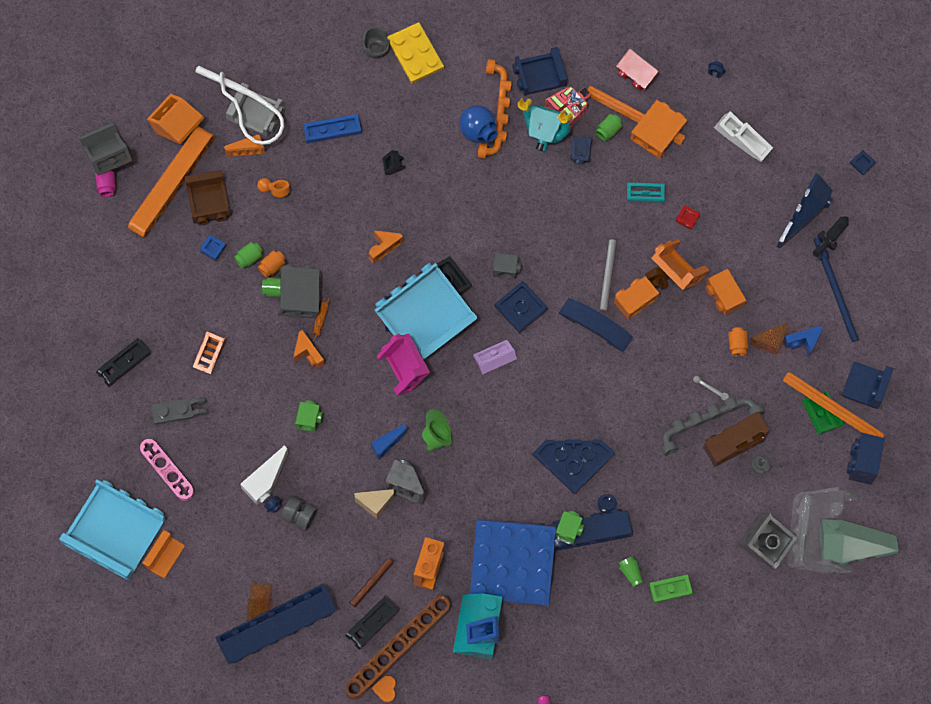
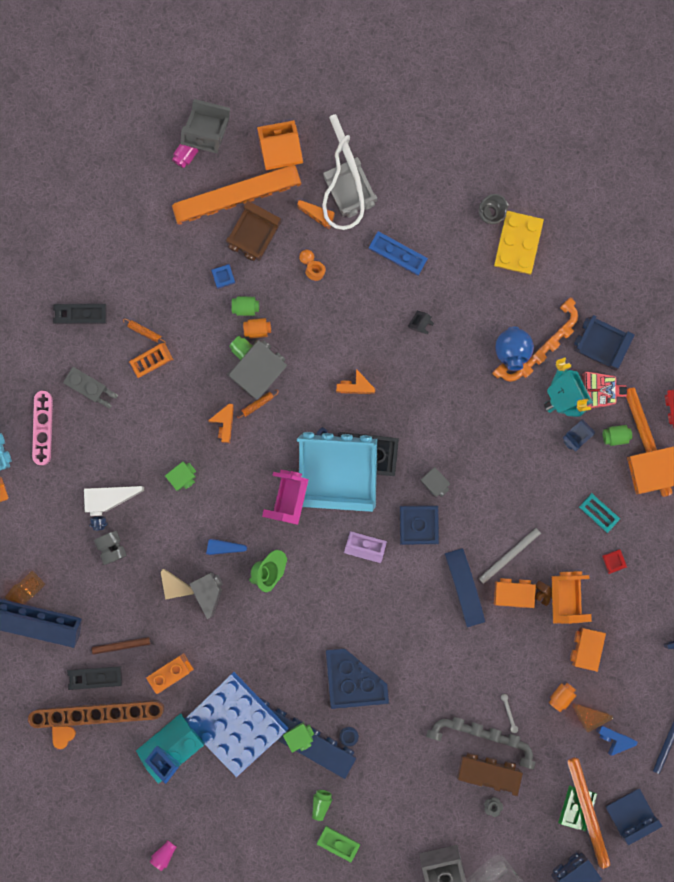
camera: 40 degrees right, 15 degrees up
(185, 336) = (144, 331): none -> orange piece

